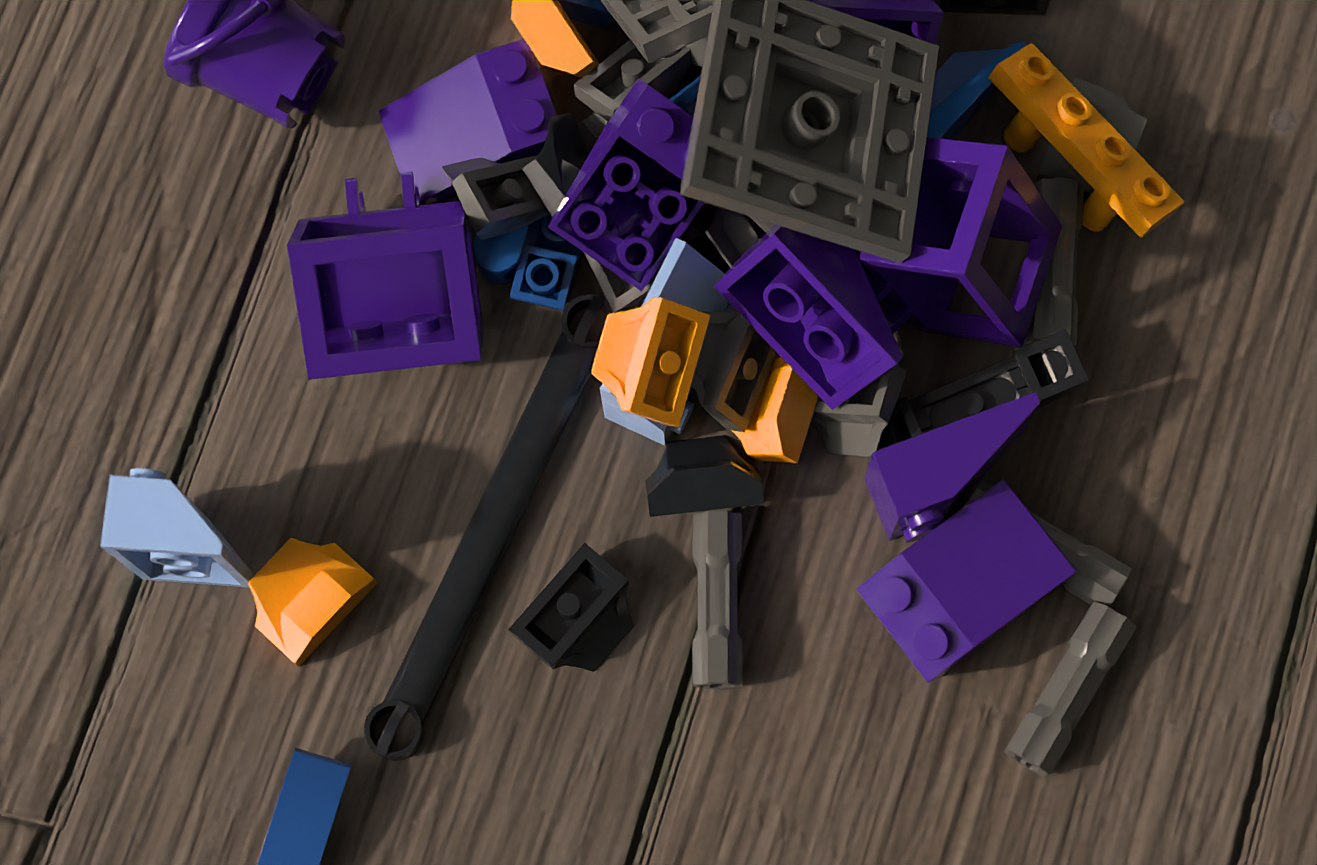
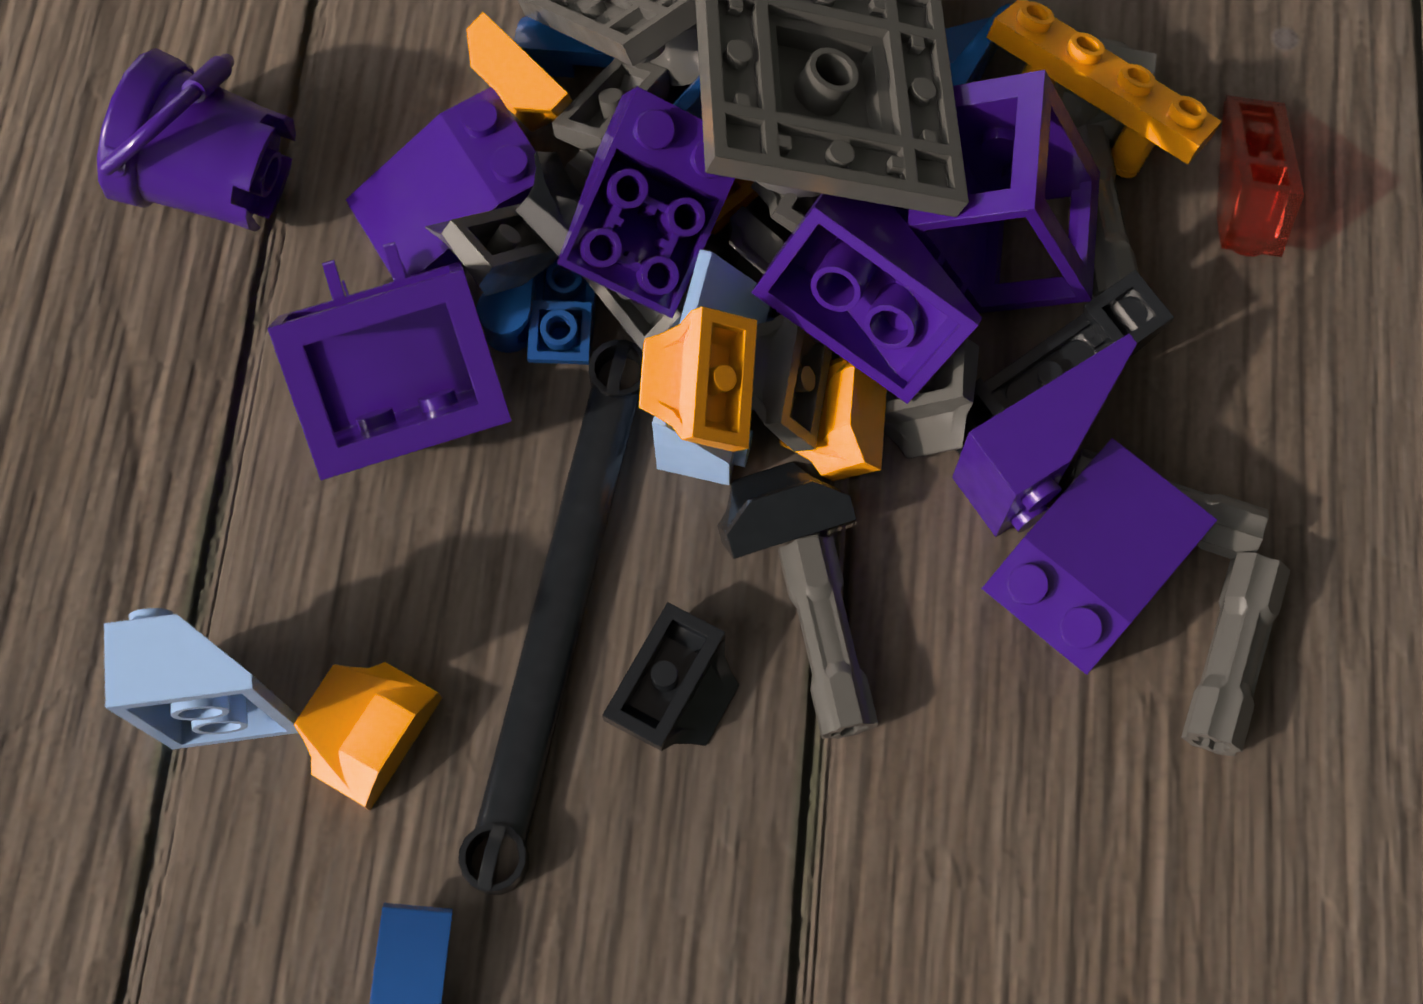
camera: 15 degrees left, 5 degrees down
(1211, 253) = (1257, 178): none -> clear red slope

